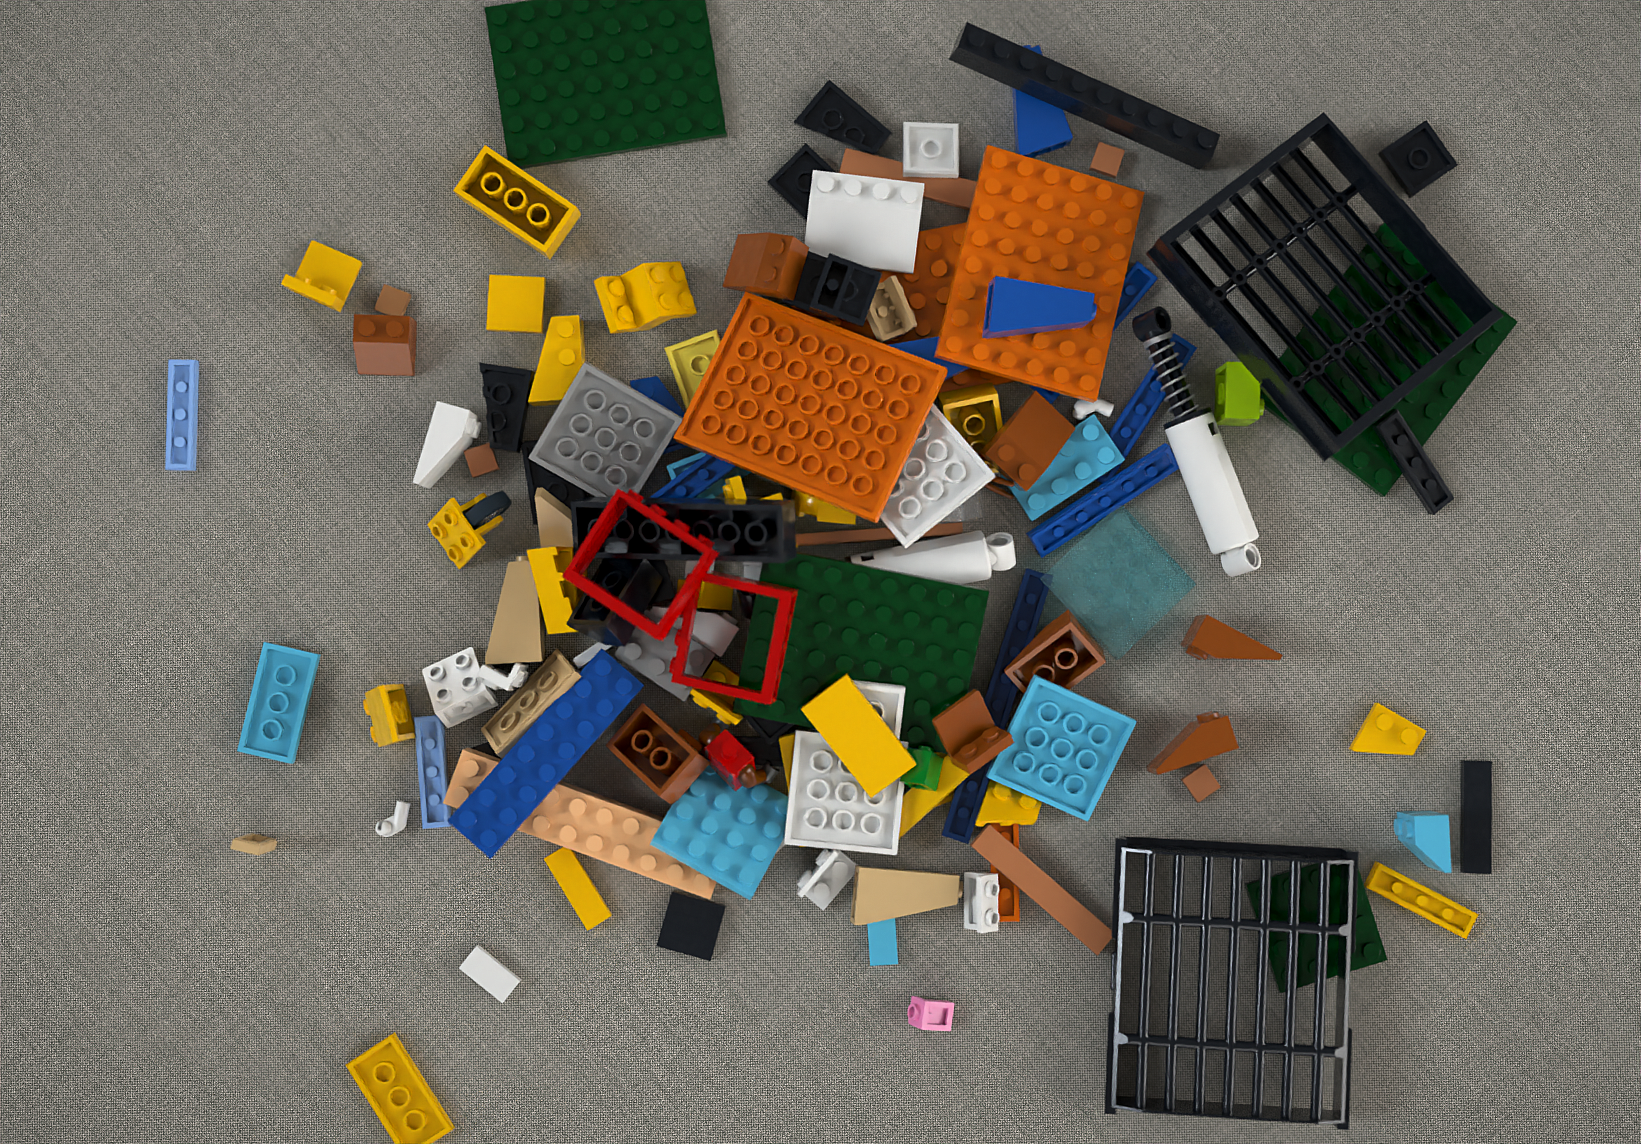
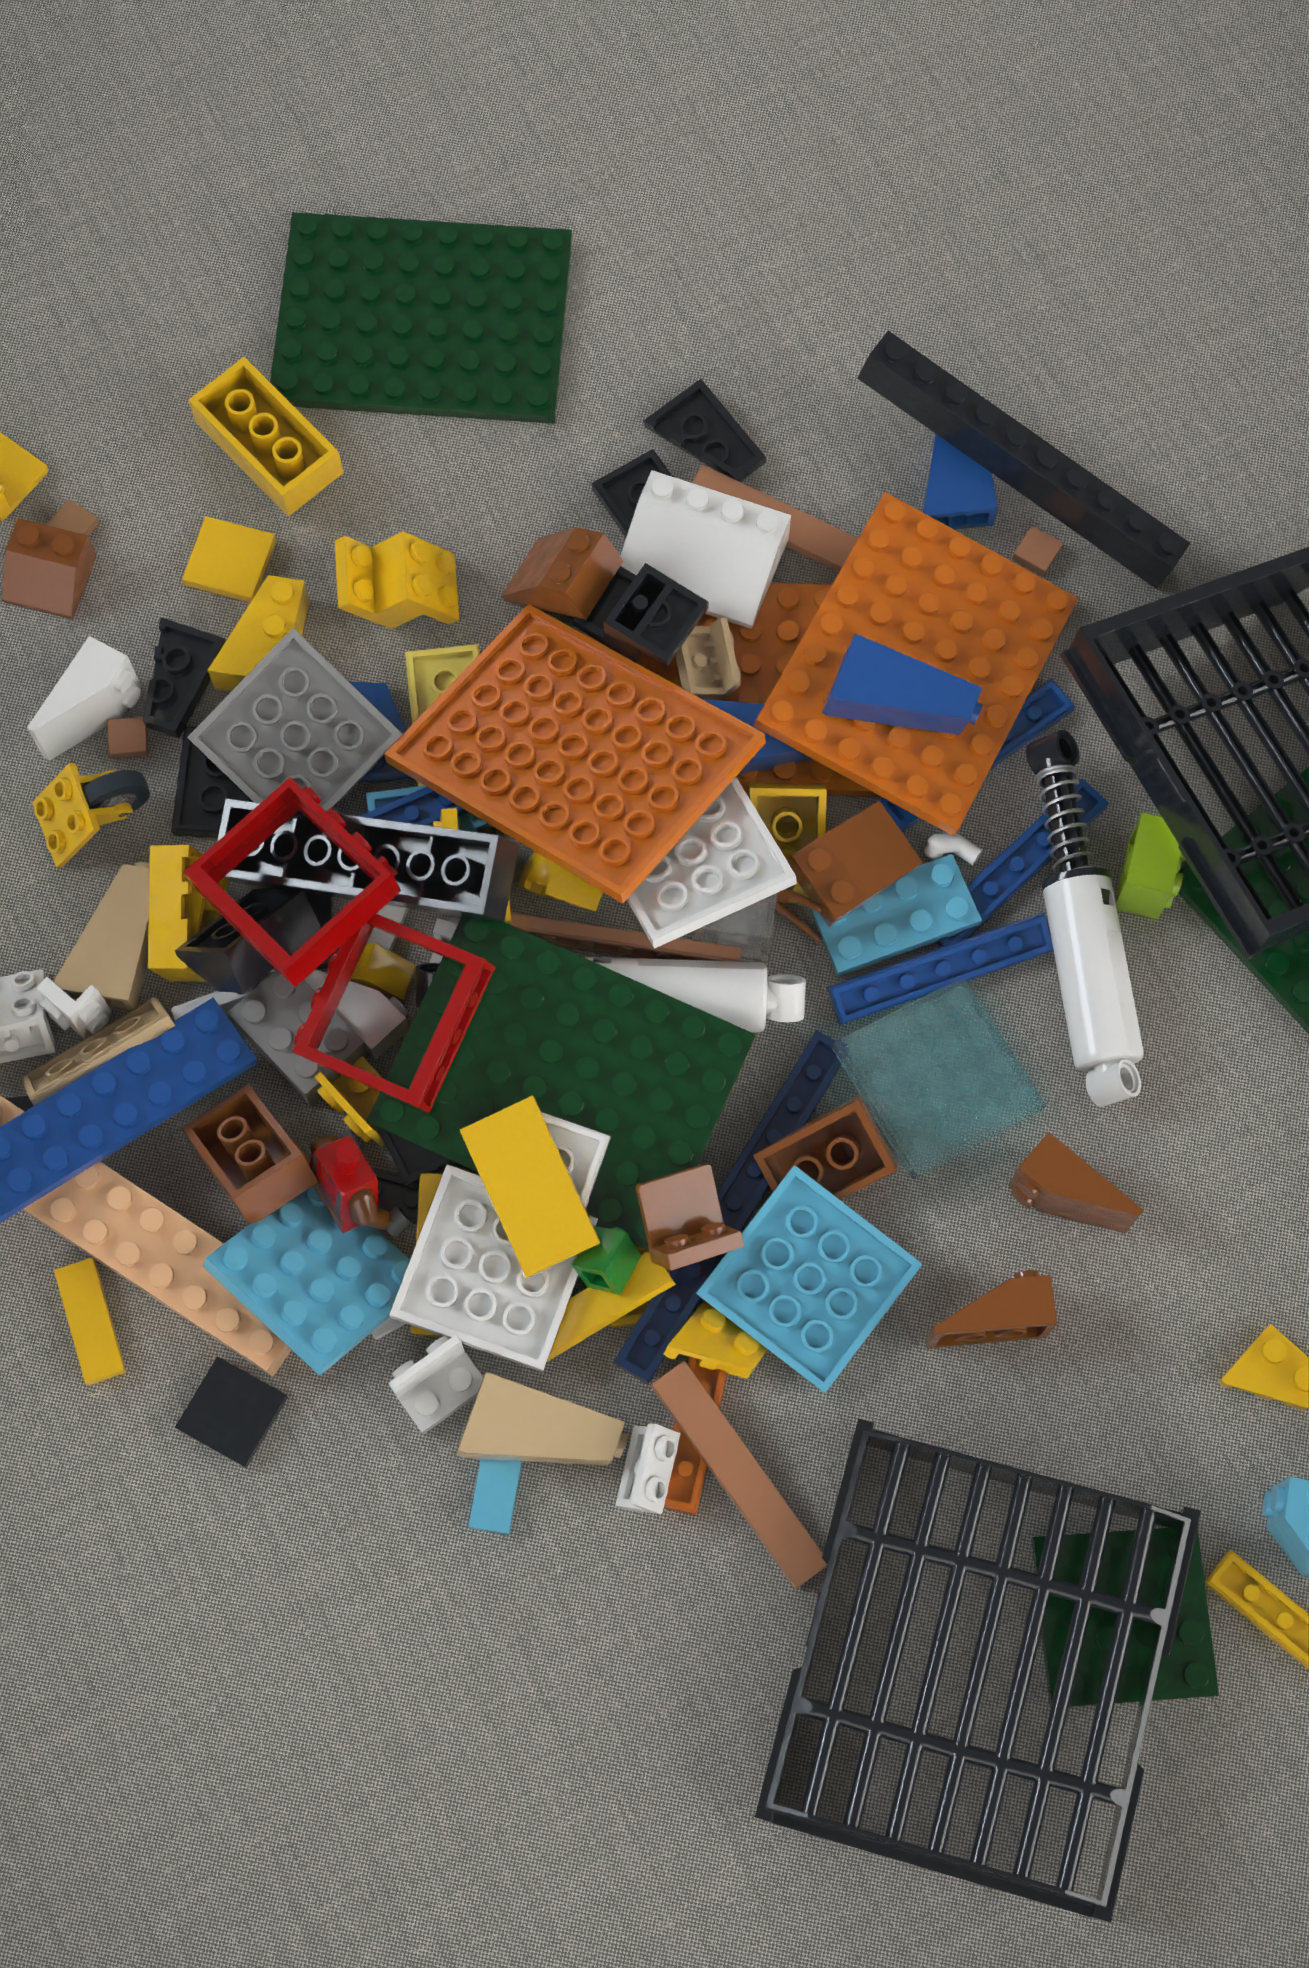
camera: 10 degrees right, 15 degrees down
(553, 520) = (196, 819): tan slope -> none
(930, 150) = (811, 489): white tile -> none
(930, 1014) = (537, 1616): bright pink bracket -> none
(1200, 783) = (997, 1379): nougat tile -> none

